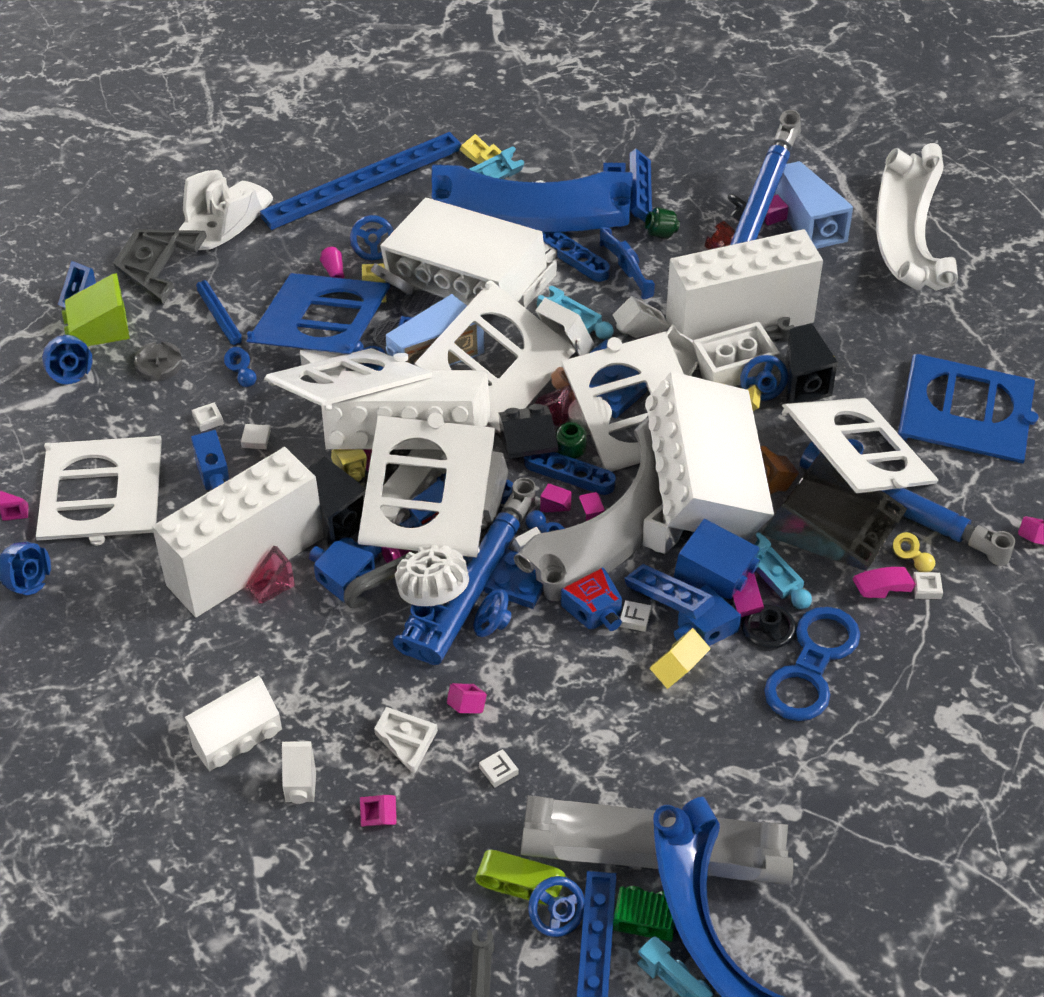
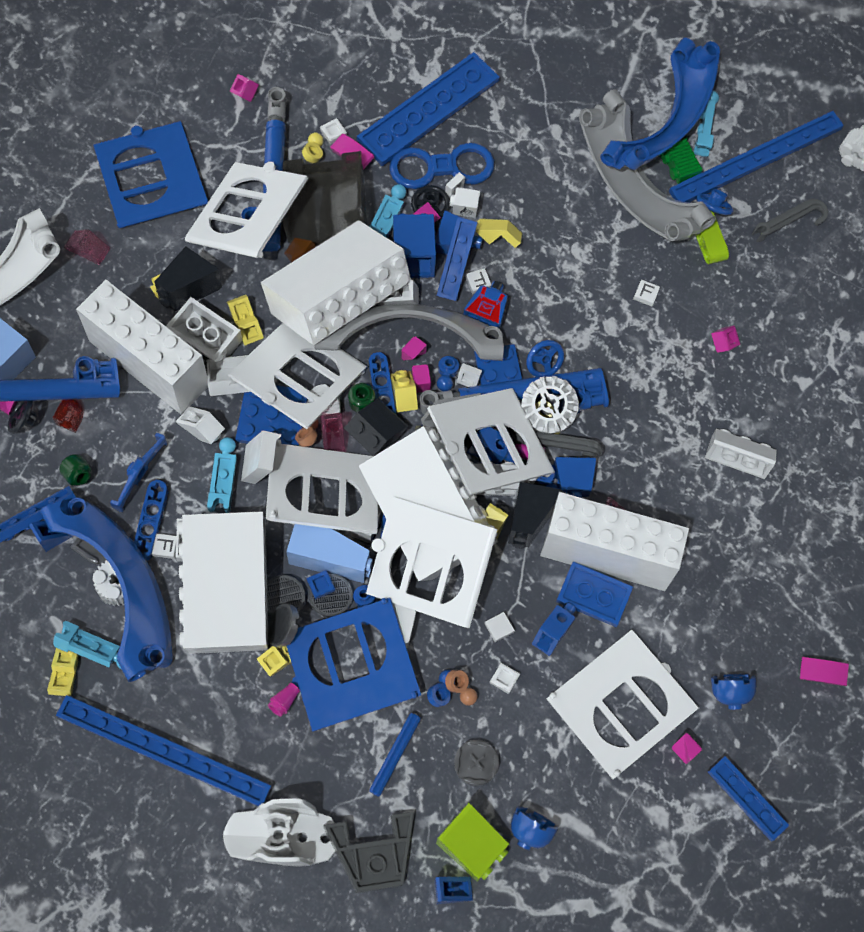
camera: 130 degrees left, 20 degrees up
(232, 371) = (467, 695): none -> nougat plate
(298, 772) = (742, 391): white slope -> none
(386, 227) = (234, 687): blue piece -> none
(405, 736) = (667, 355): white wing -> none
(466, 698) = (613, 339): dark pink slope -> none
(552, 471) = (404, 391): none -> light yellow slope
(743, 651) = (465, 202): none -> white brick
(770, 386) = (216, 301): blue piece -> none
(772, 652) = (457, 181): none -> white tile
(903, 691) = (428, 108): none -> blue plate
(904, 324) = (87, 246): none -> clear pink slope

